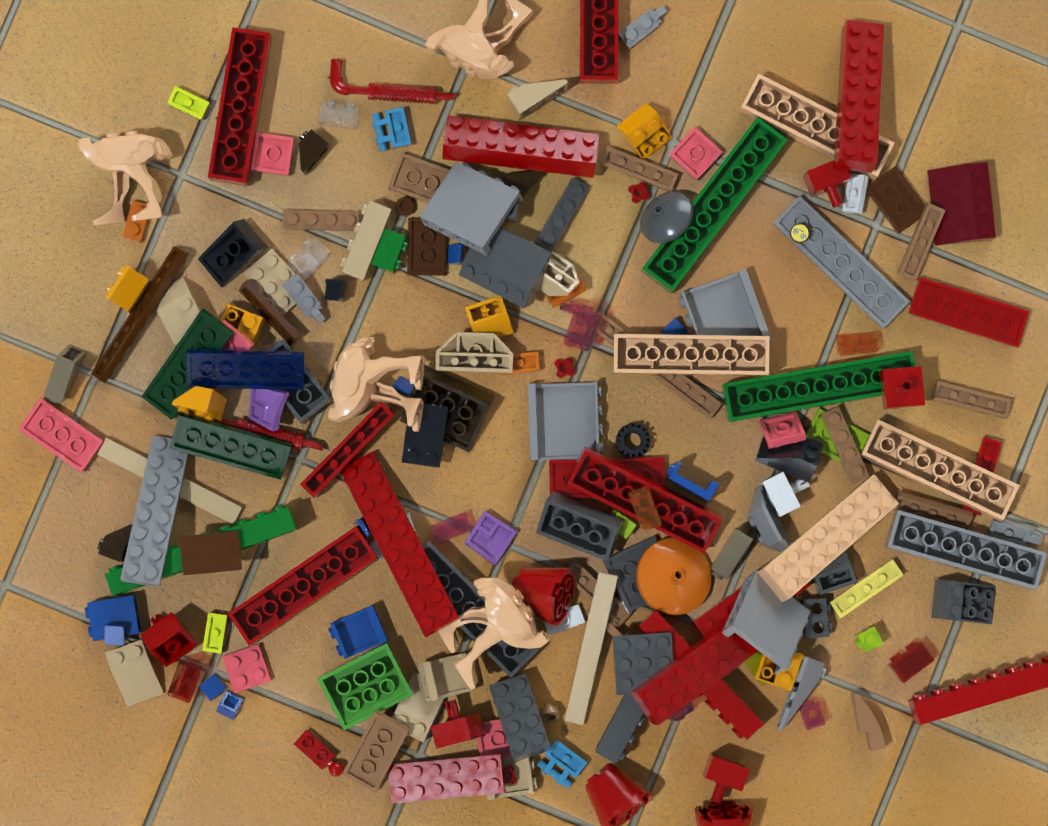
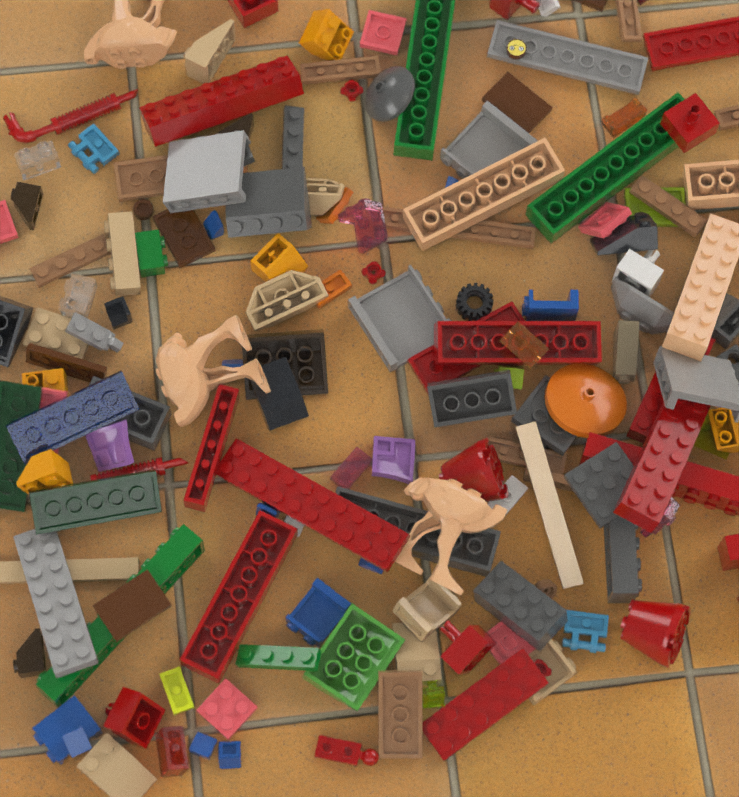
camera: 30 degrees left, 15 degrees down
(306, 653) = (278, 657): none -> green plate
(410, 751) = (433, 695): none -> clear neon green tile
(773, 281) = (518, 102): none -> reddish brown tile

